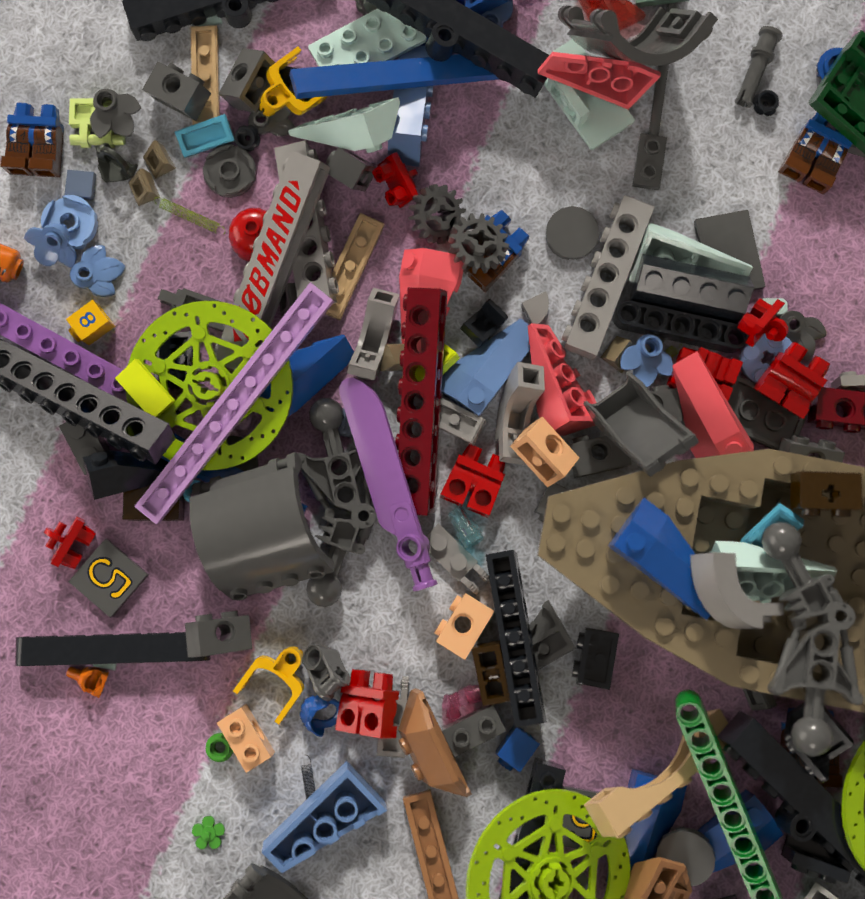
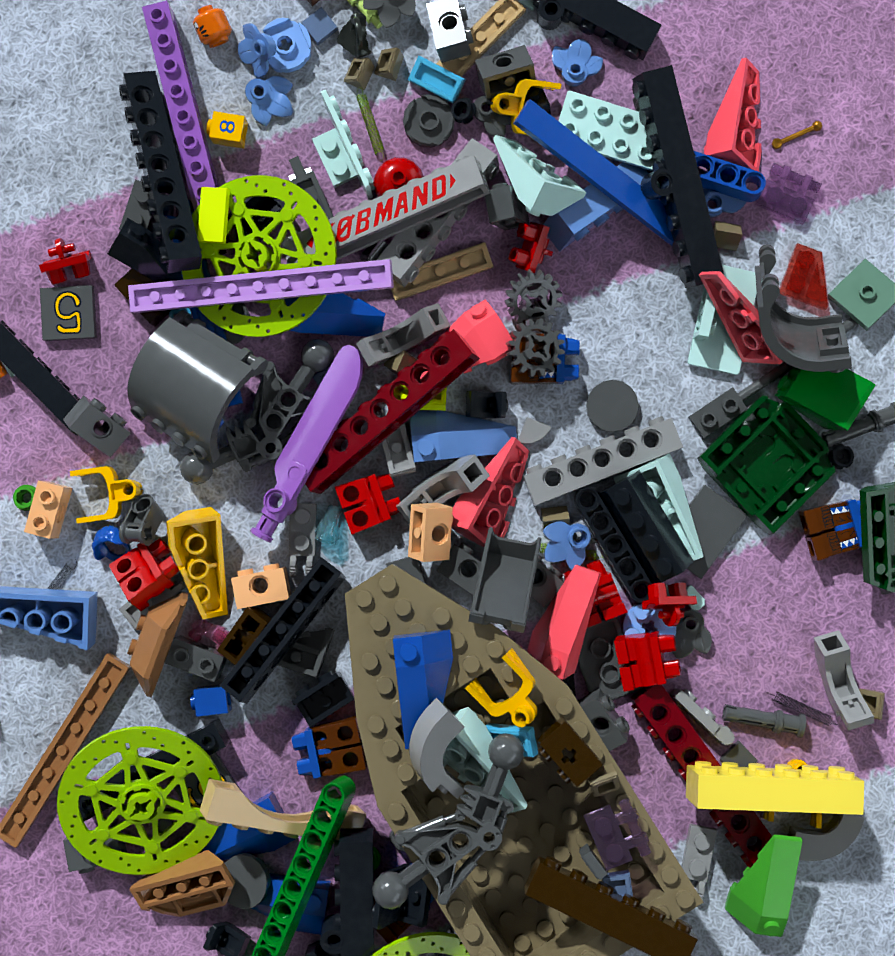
camera: 50 degrees right, 5 degrees up
(189, 255) = (337, 154): none -> light aqua bracket
(291, 26) = (576, 58): none -> medium blue plate
(394, 649) = (198, 552): none -> yellow wedge
(527, 31) = (727, 235): none -> dark tan slope
(642, 687) = (325, 748): none -> reddish brown hips
(712, 70) = (825, 397): none -> green slope
(723, 158) = (768, 462): none -> dark green wedge
(748, 498) = (518, 703): none -> yellow piece

